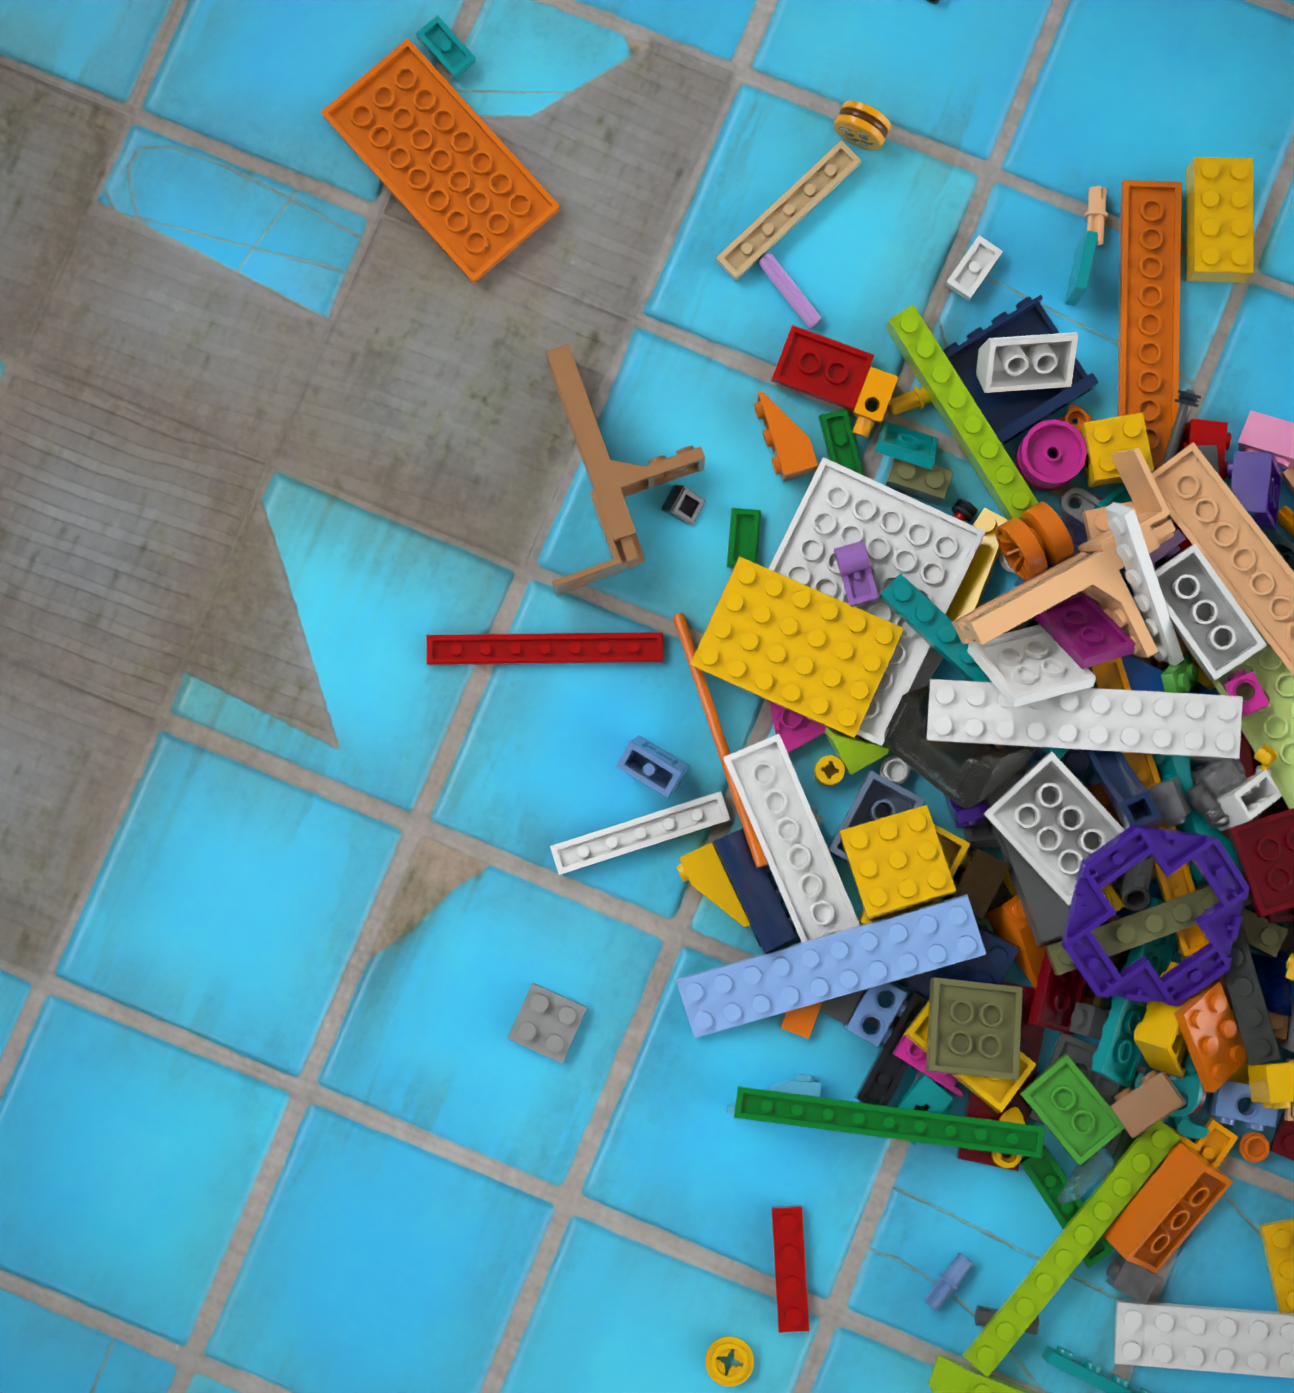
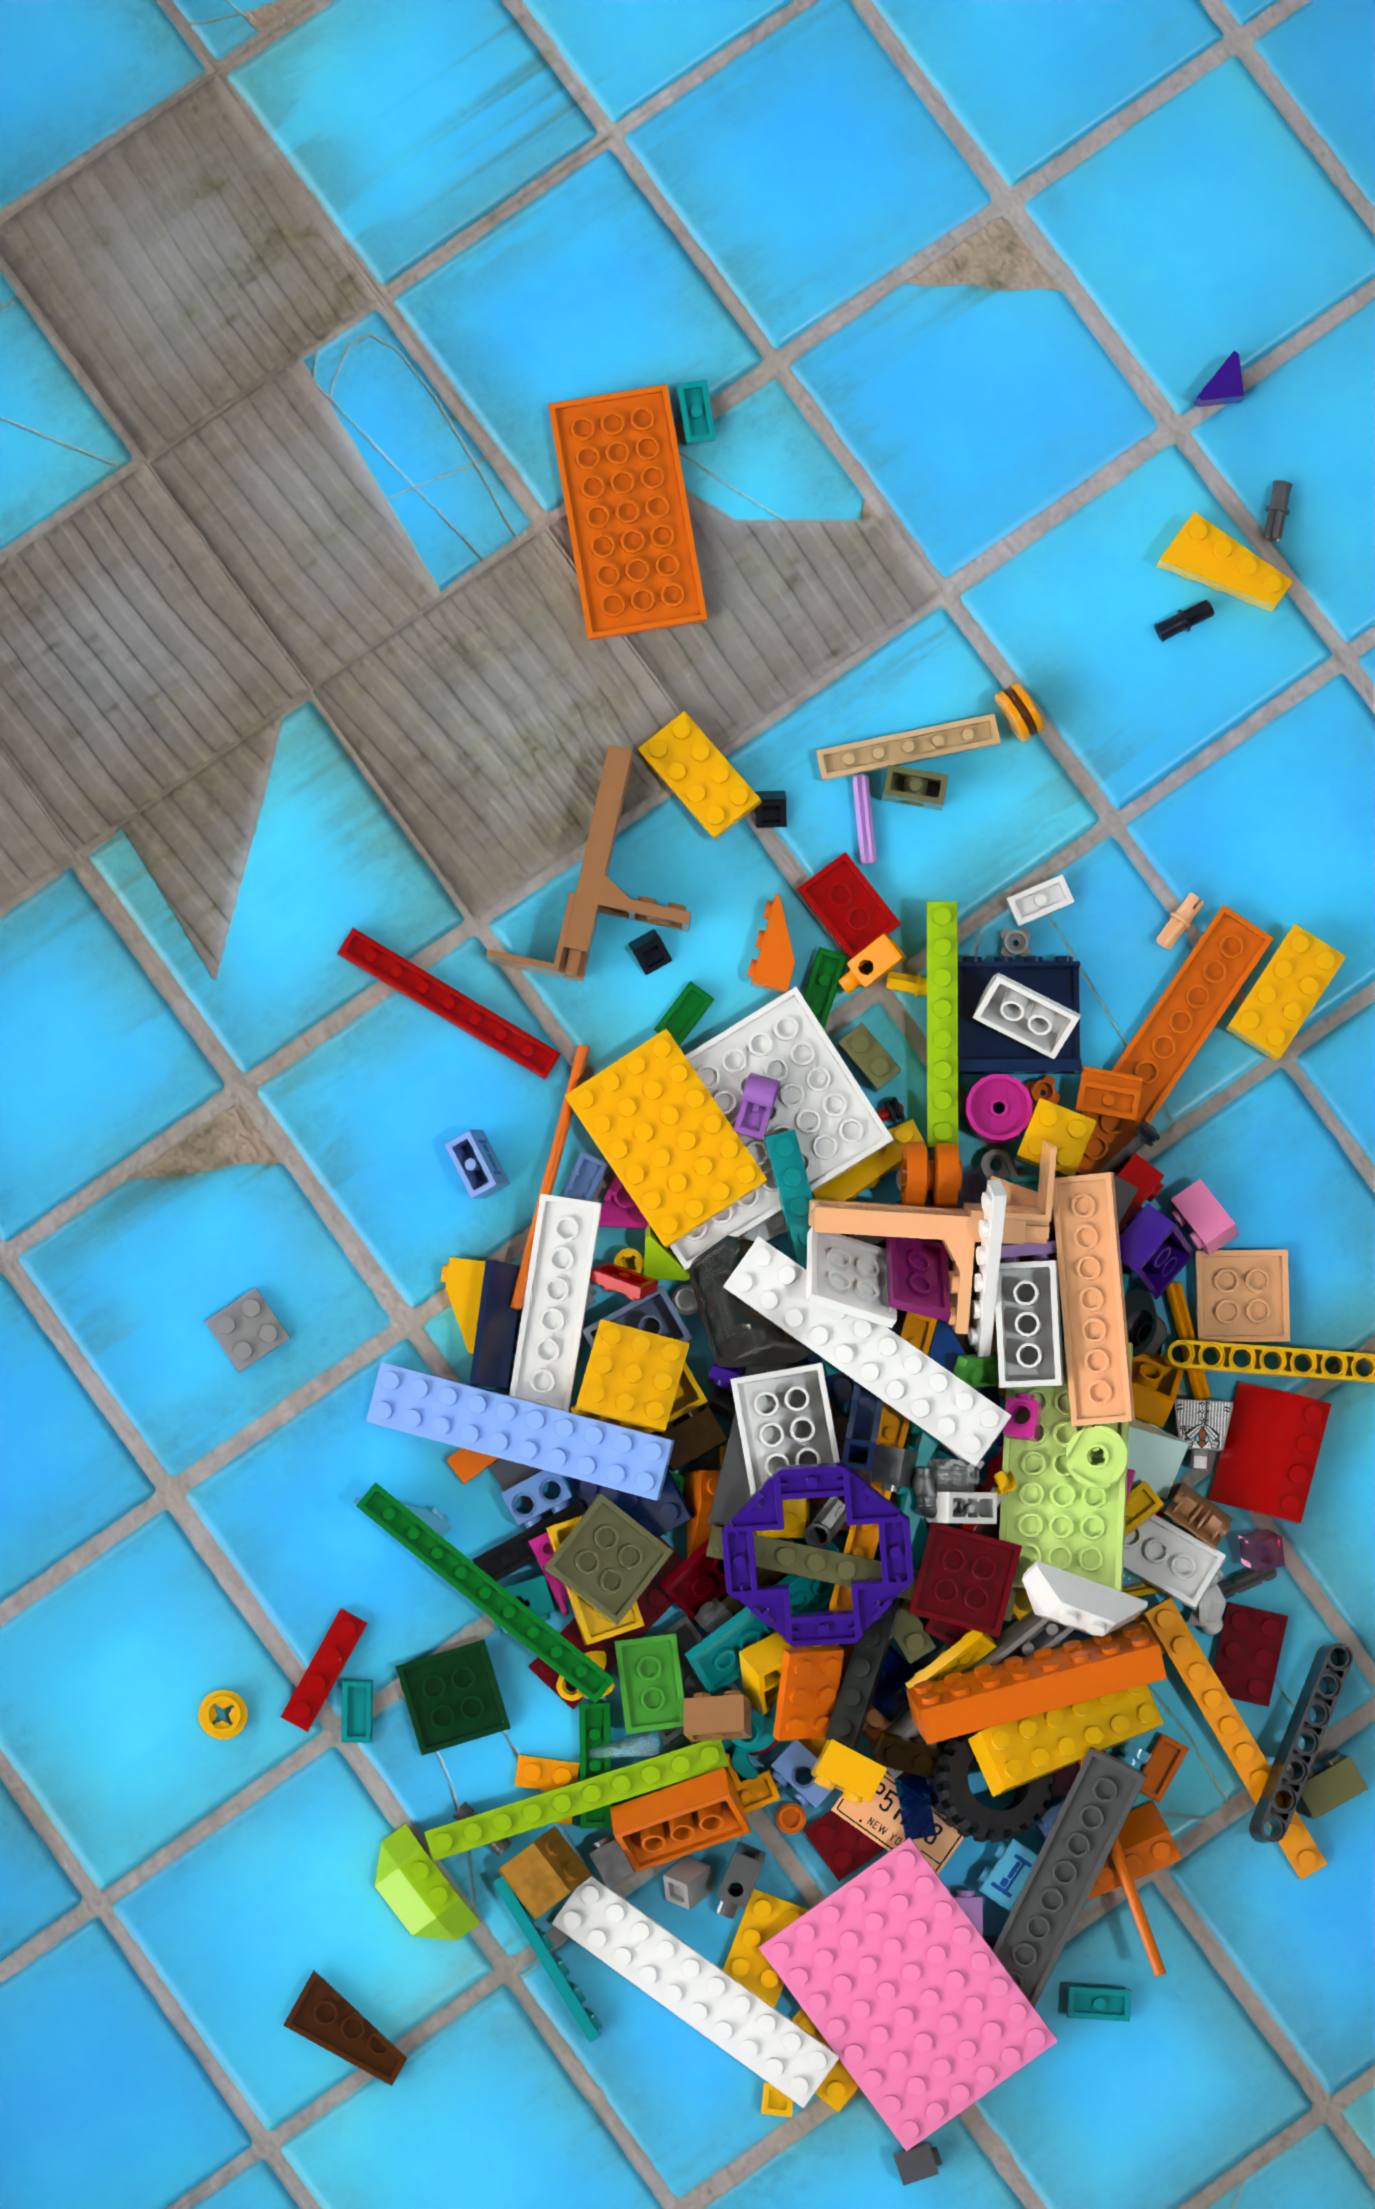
camera: 30 degrees right, 0 degrees up
(634, 336) = (699, 775): none -> yellow plate
(639, 833) = (430, 1215): white plate -> none
(708, 329) = (772, 809): none -> black slope
(748, 722) = (585, 1177): none -> medium blue plate
(816, 237) = (915, 787): none -> olive brick
(839, 786) = (617, 1278): none -> red plate
(839, 1286) = (357, 1711): none -> teal tile
(907, 445) = (876, 1021): teal tile -> none
(912, 1224) = (453, 1697): none -> dark green plate
(948, 1282) = (452, 1766): medium blue axle -> none
(976, 306) = (1021, 936): none -> light grey plate
(1029, 1238) = (546, 1775): none -> light orange plate
(1081, 268) = (1131, 960): teal tile -> none
(1085, 1326) = (544, 1872): none -> pearl gold slope
(1133, 387) = (1109, 1093): none -> orange plate
(1205, 1256) = (688, 1882): none -> light grey panel
(1248, 1225) = (743, 1869): none -> dark grey torso

